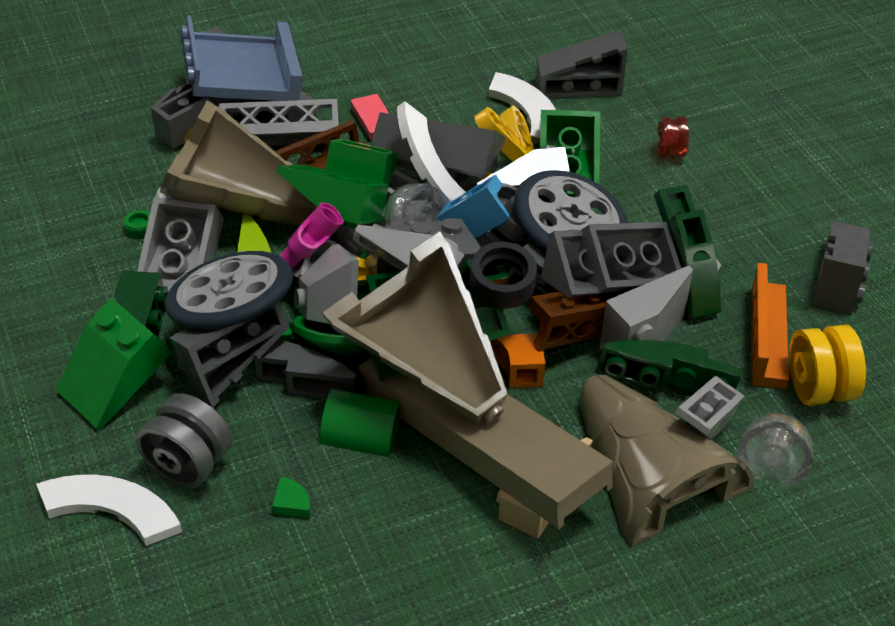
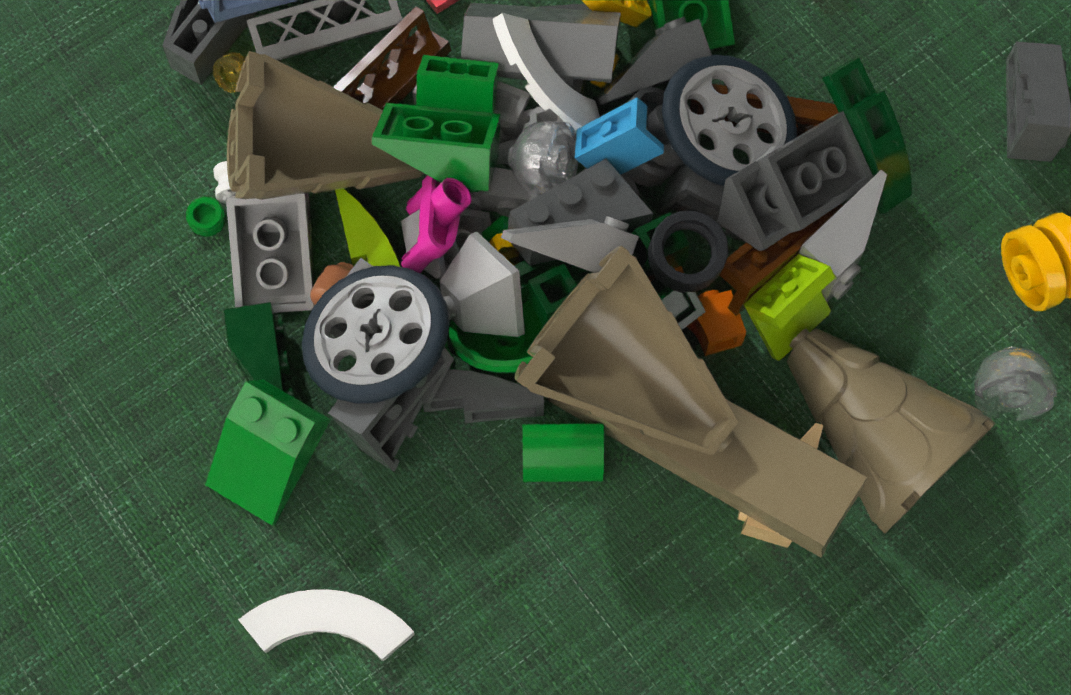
camera: 15 degrees left, 25 degrees up
(184, 440) = (387, 536): flat silver wheel -> none
(291, 499) = (519, 566): green tile -> none
(579, 348) = (790, 303): none -> lime bracket
(661, 363) = (868, 299): dark green slope -> none
(711, 407) = (939, 360): light grey slope -> none
(768, 332) = (970, 212): orange fence -> none

